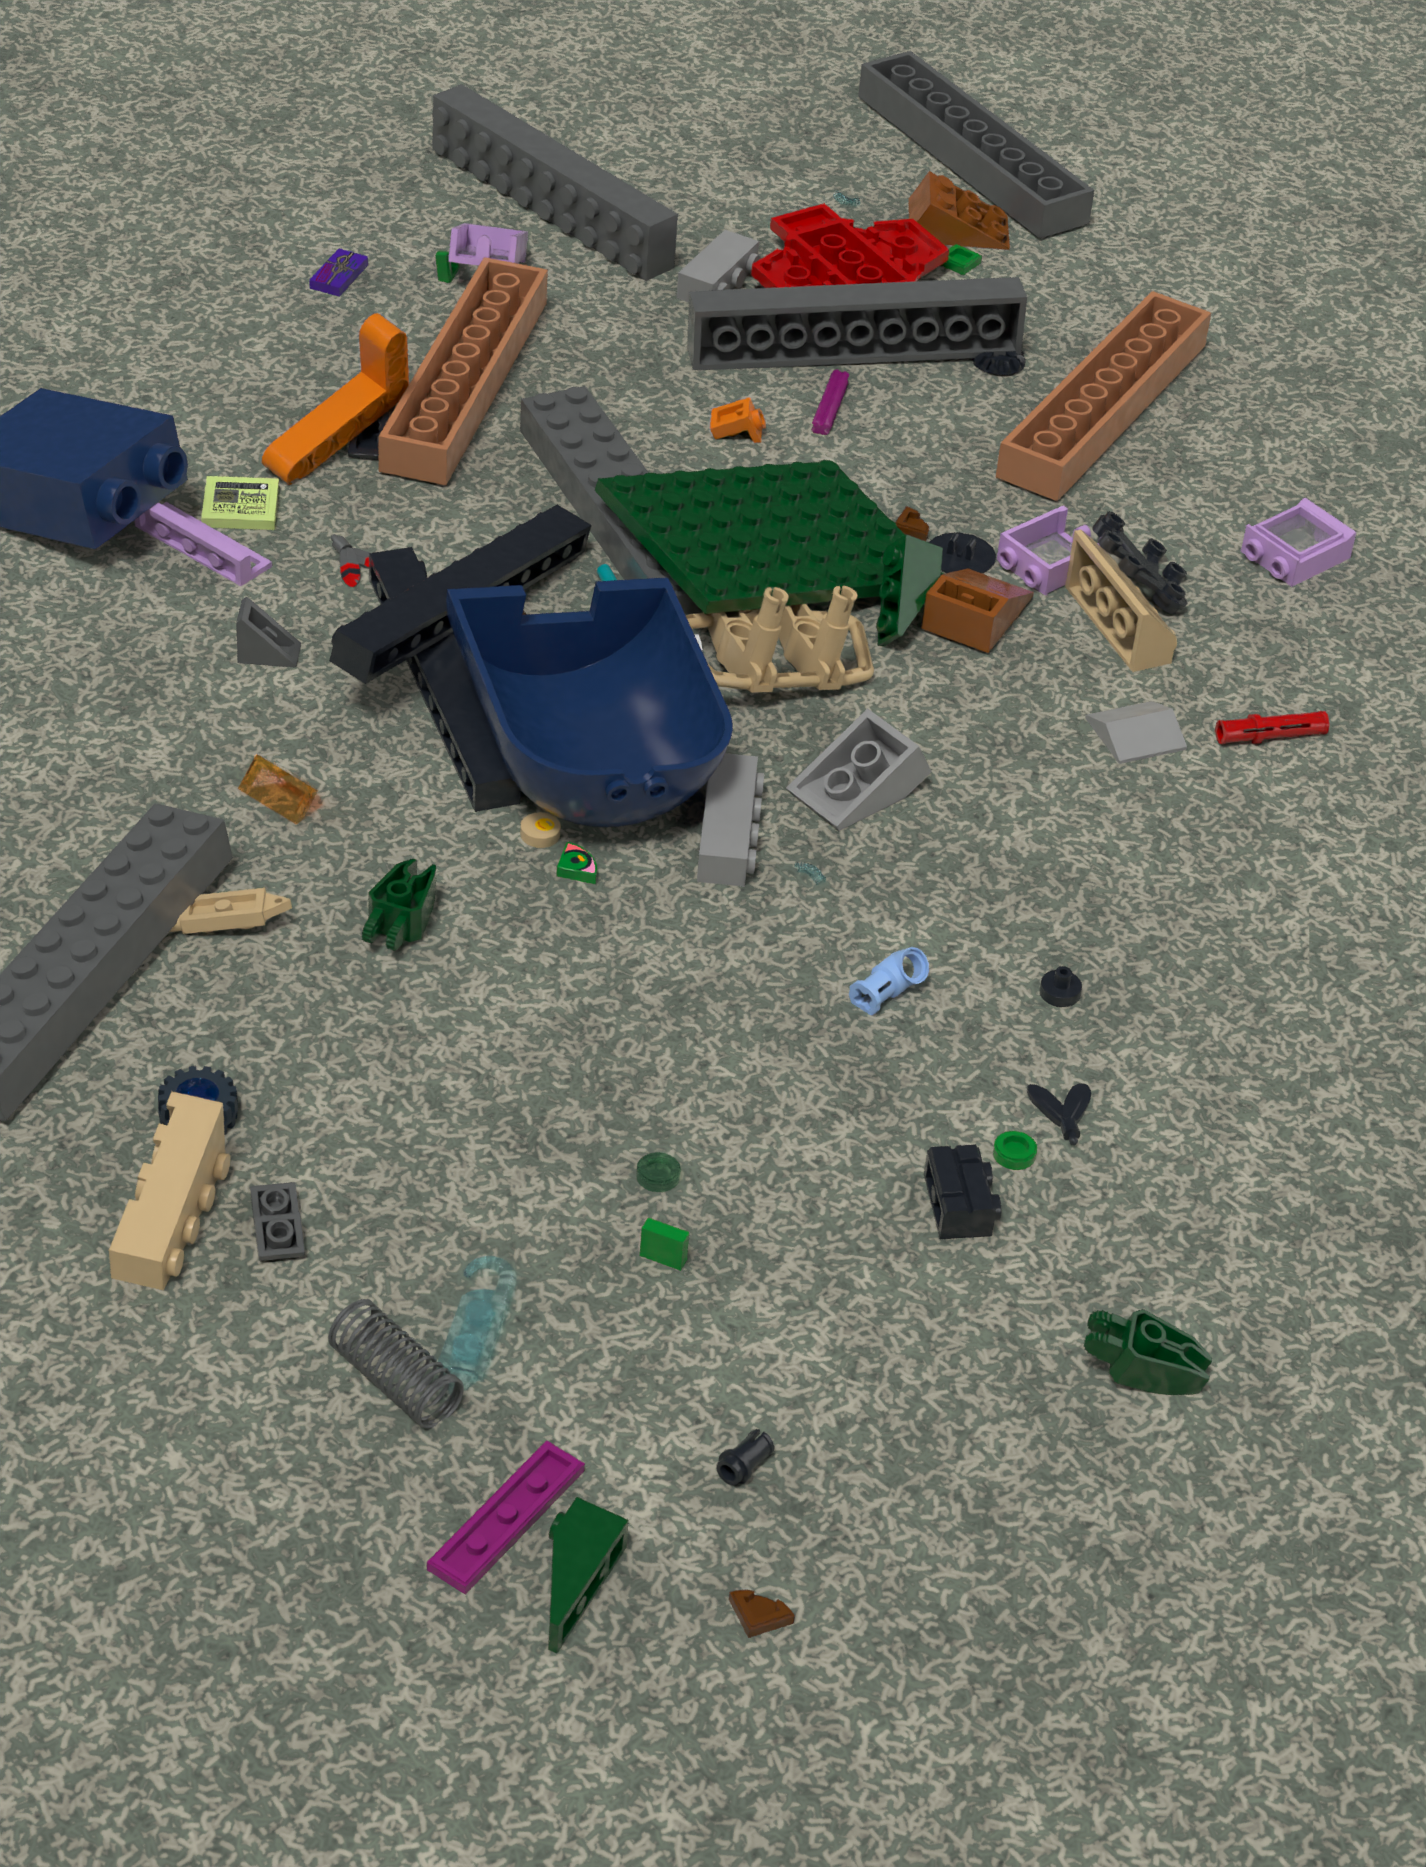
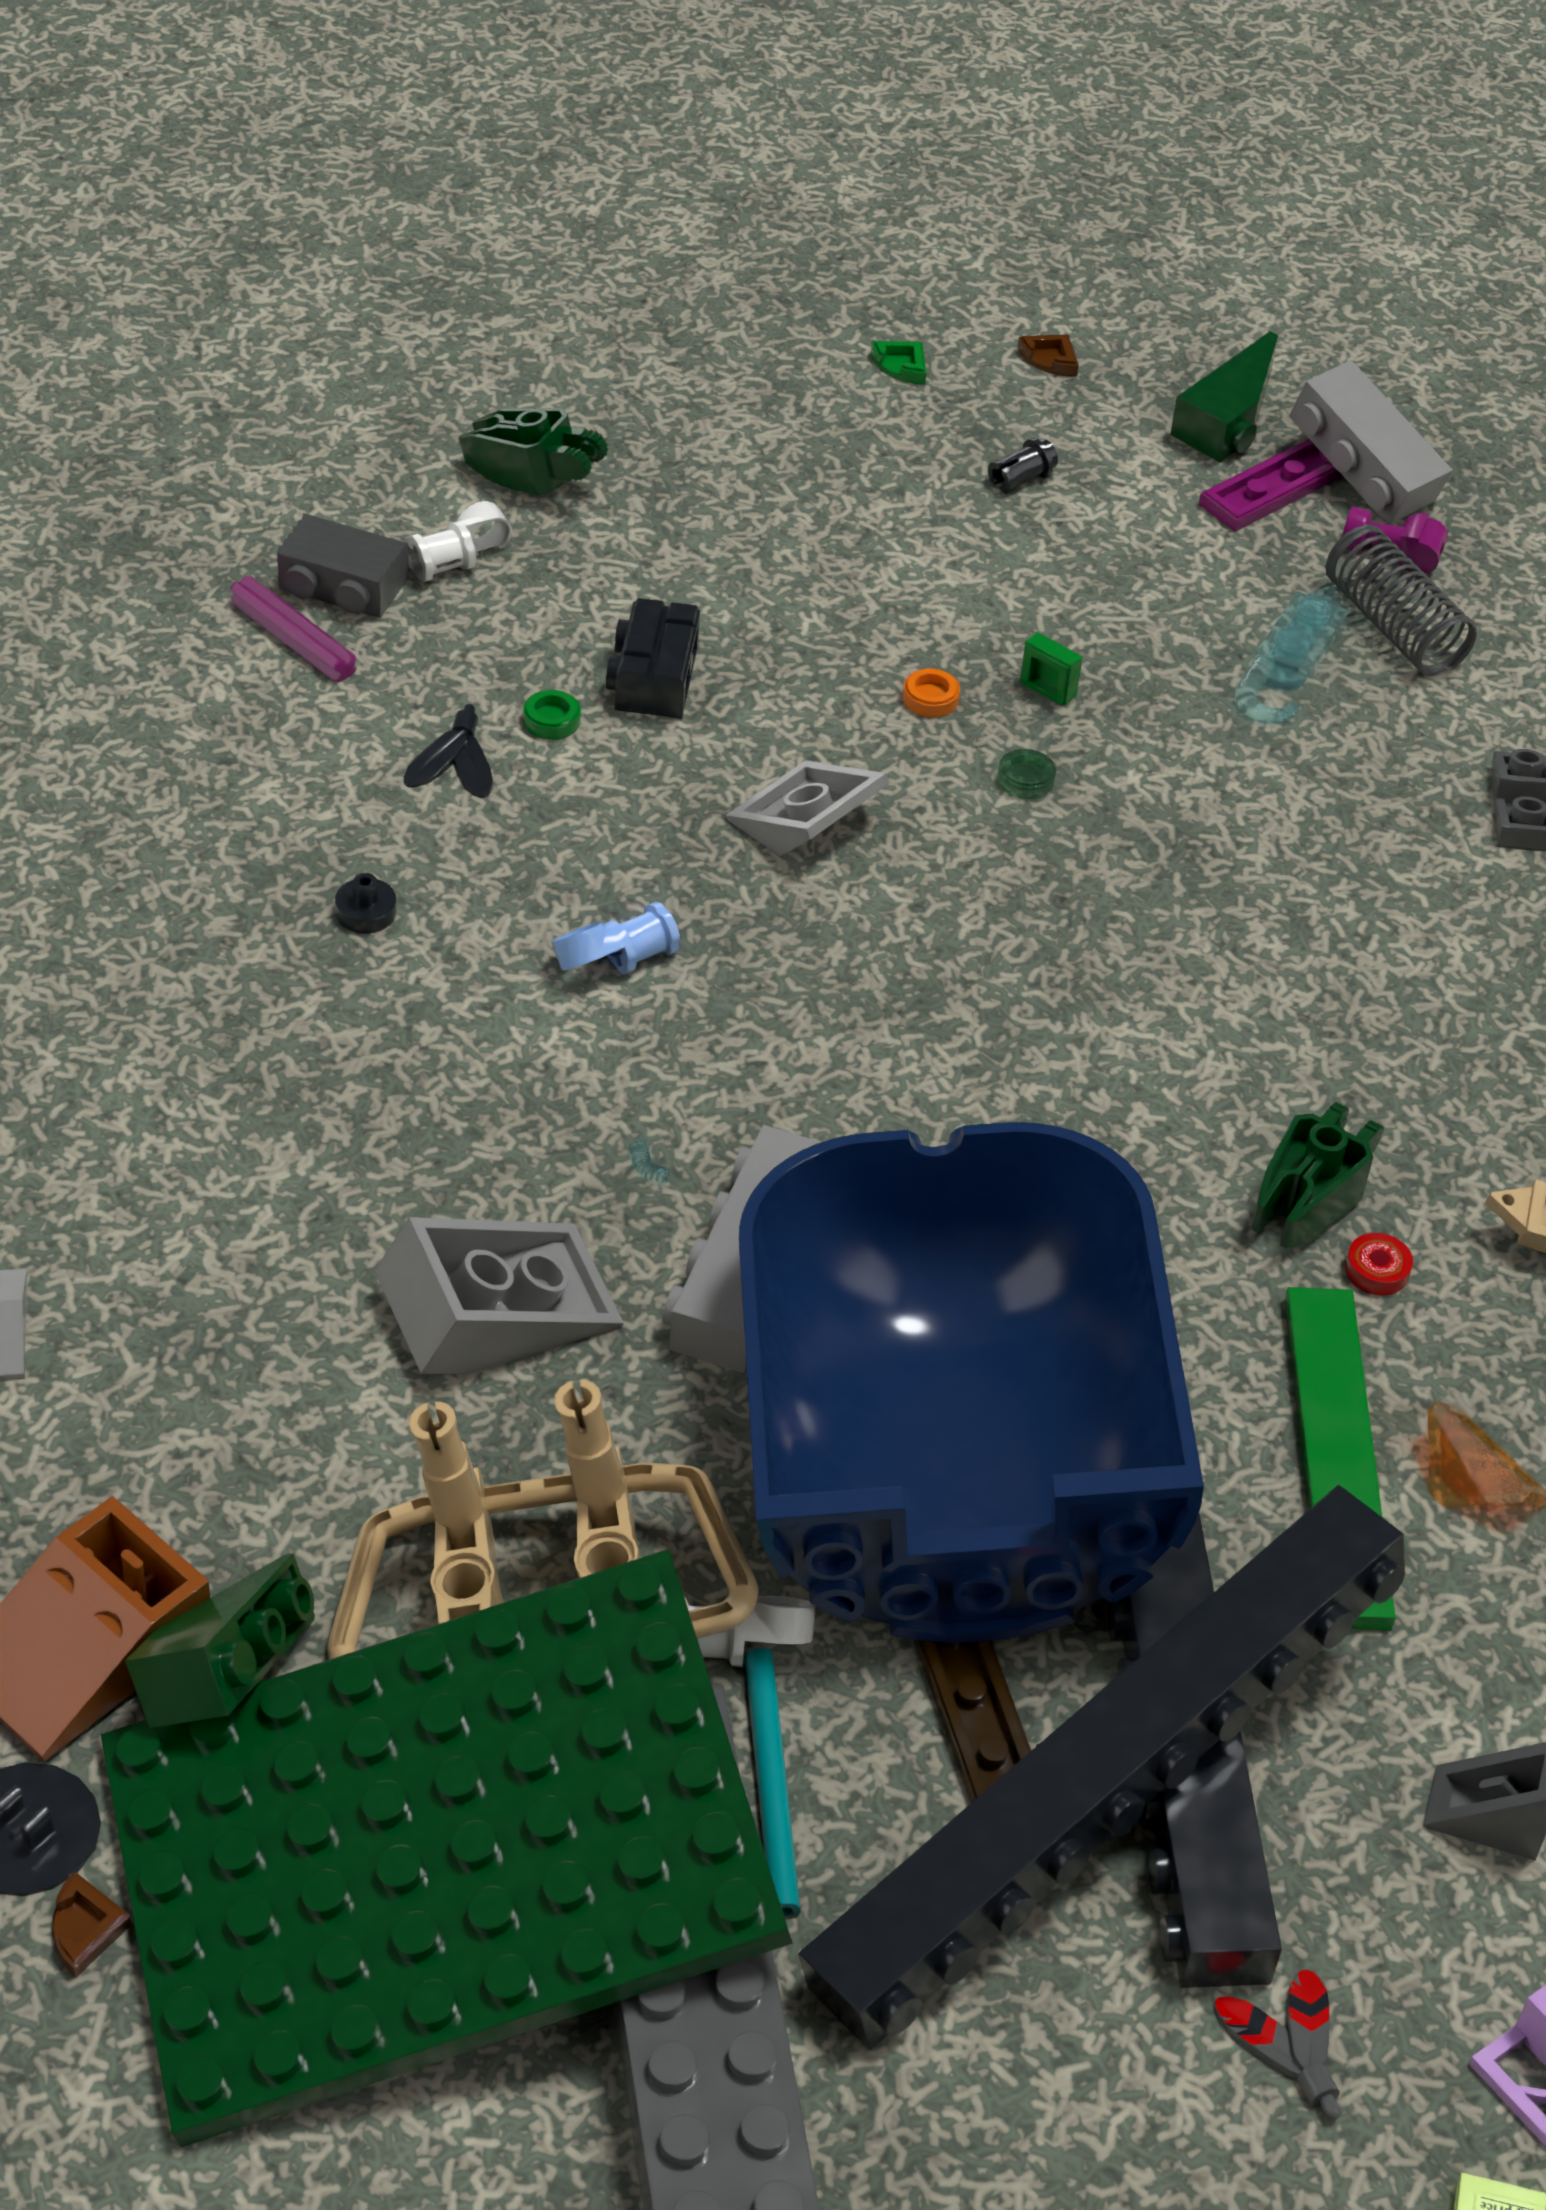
camera: 165 degrees left, 5 degrees up
(352, 885) = (1378, 1264): none -> red tile
(366, 787) = (1333, 1408): none -> green tile
(387, 1444) = (1419, 537): none -> magenta leg
(444, 1516) = (1370, 442): none -> light grey brick
(749, 1226) = (931, 692): none -> orange tile
(802, 1102) = (807, 808): none -> light grey slope
(891, 1570) = (901, 358): none -> green tile
(1157, 1265) = (456, 545): none -> white connector
(1228, 1224) = (342, 565): none -> dark grey brick
(1233, 1179) = (293, 629): none -> magenta axle

